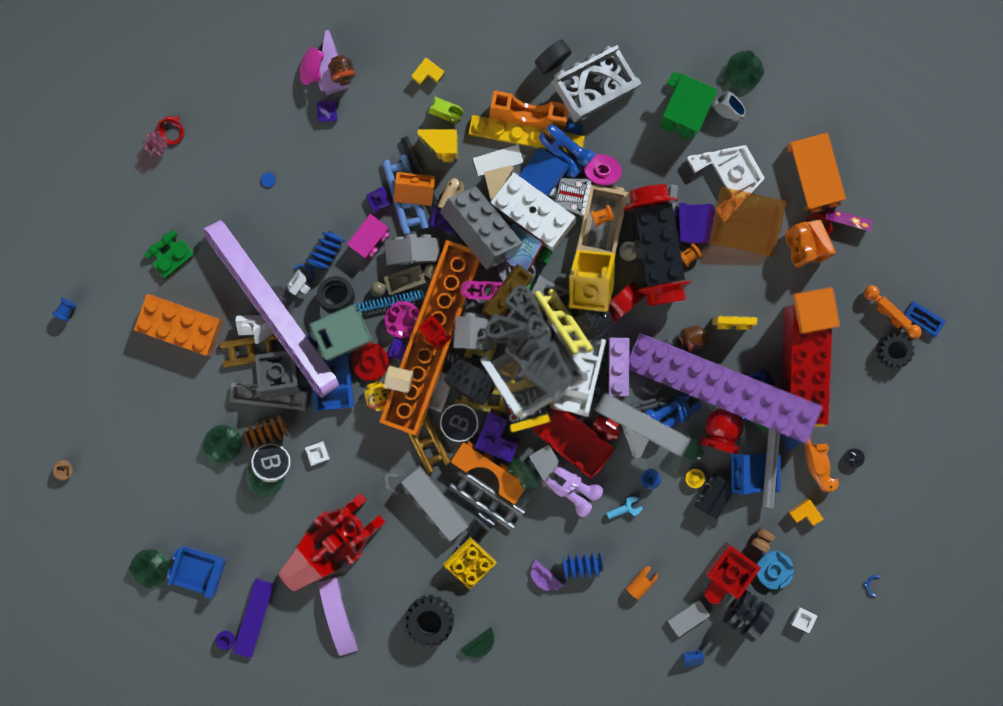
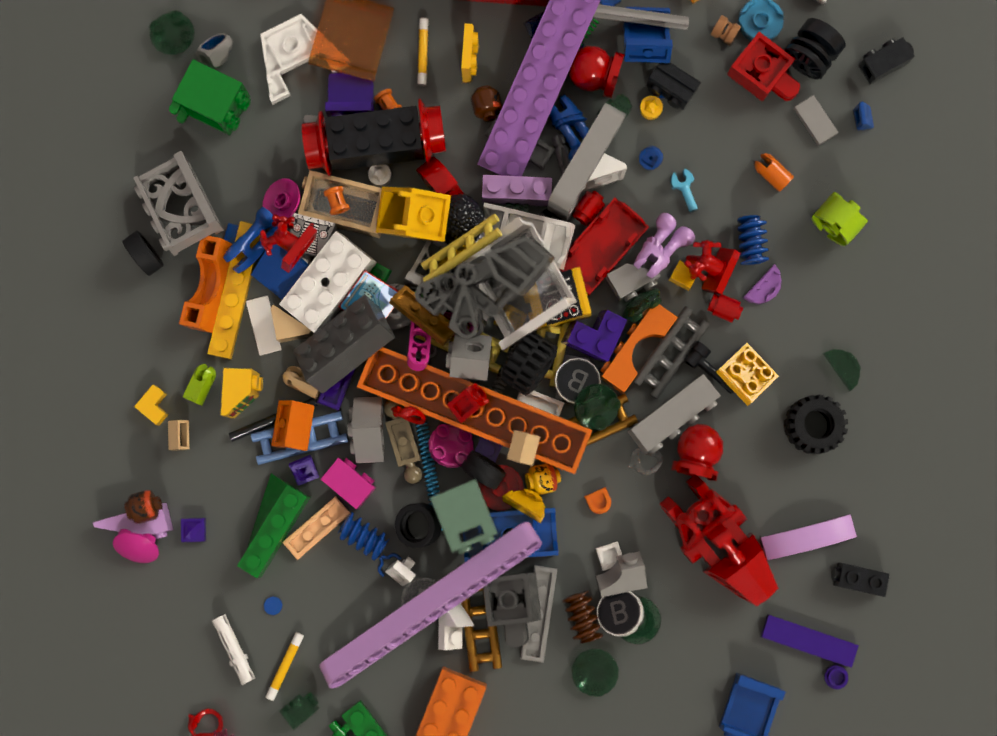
camera: 85 degrees left, 5 degrees down
(184, 206) = (300, 709): none -> clear green brick
(219, 191) = (284, 666): none -> yellow bar
(228, 151) = (235, 653): none -> white pin
(299, 464) = (625, 576): none -> light grey arch
(304, 659) = (860, 579): none -> black brick
(332, 212) = (316, 528): none -> light nougat tile
(336, 177) = (275, 519): none -> green wedge
(356, 384) = (527, 502): none -> yellow tile
(361, 443) = (599, 501): none -> orange tile
(381, 347) = (483, 470): none -> black tyre
(402, 92) = (174, 435): none -> tan piece
(403, 524) = (699, 451): none -> red tile
(425, 283) = (407, 413): none -> red piece
(437, 439) = (596, 406): none -> clear green dish
(525, 544) = (725, 307): none -> red brick
(551, 509) = (682, 276): none -> yellow slope
(557, 537) = (718, 267): none -> red piece
(565, 177) = (288, 241): none -> red piece
(602, 638) = (839, 219): none -> lime brick
(737, 283) = (422, 52): none -> yellow bar
(742, 678) = (886, 60): none -> black brick

